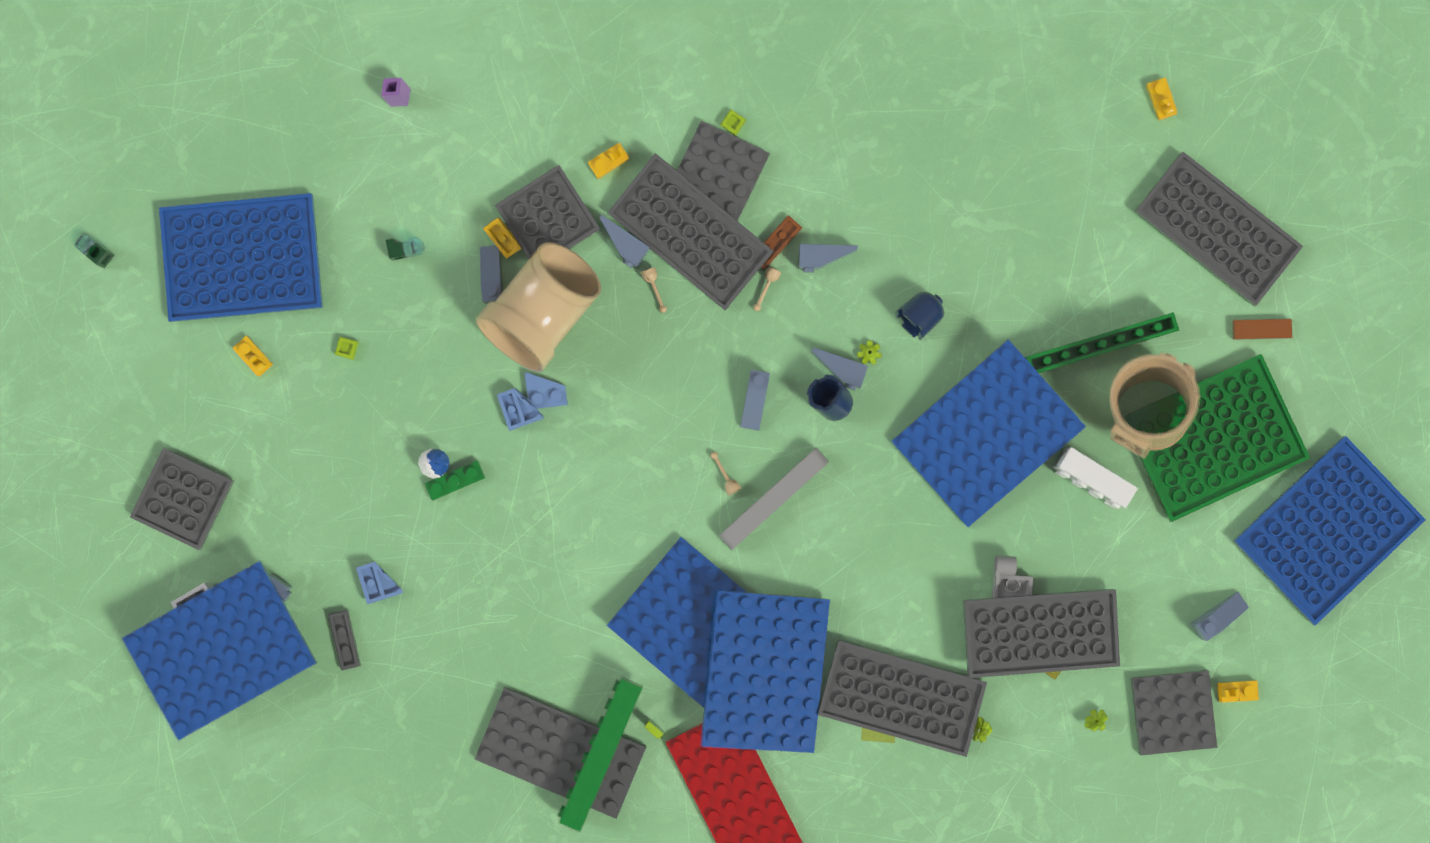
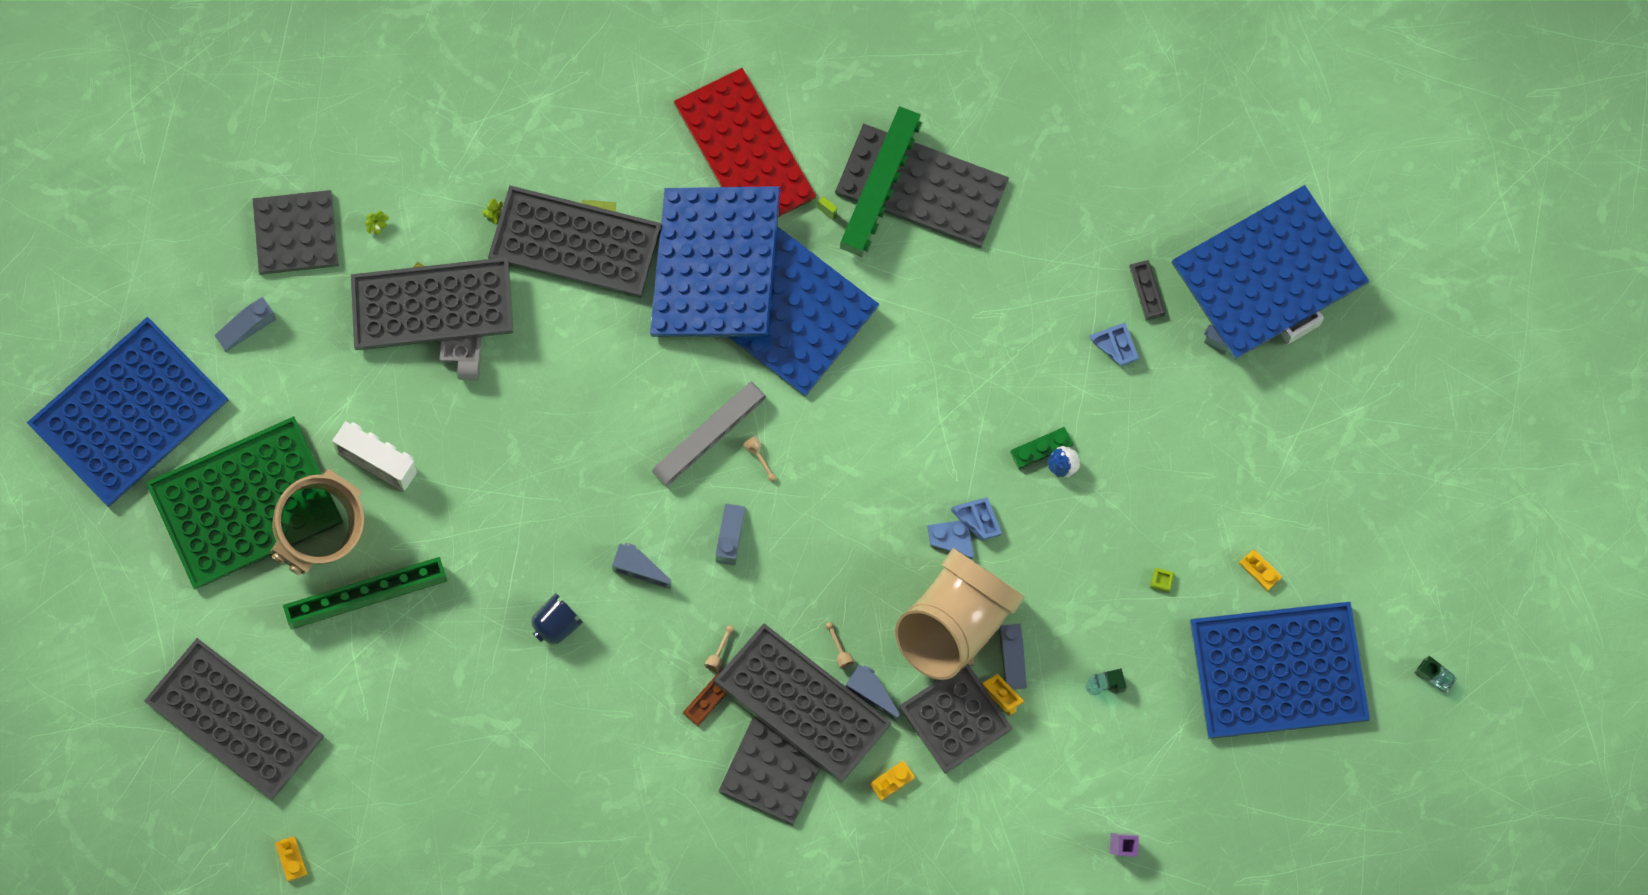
camera: 175 degrees right, 15 degrees down
(182, 499) = (1322, 424): dark grey plate -> none
(733, 122) = (758, 824): lime tile -> none
(817, 256) = (665, 681): sand blue slope -> none
(830, 398) = (652, 530): dark blue cylinder -> none
(869, 357) = (609, 585): lime plant -> none
(988, 433) = (485, 500): blue plate -> none
(1237, 691) = (228, 253): yellow plate -> none
(1262, 329) = (190, 615): dark orange tile -> none

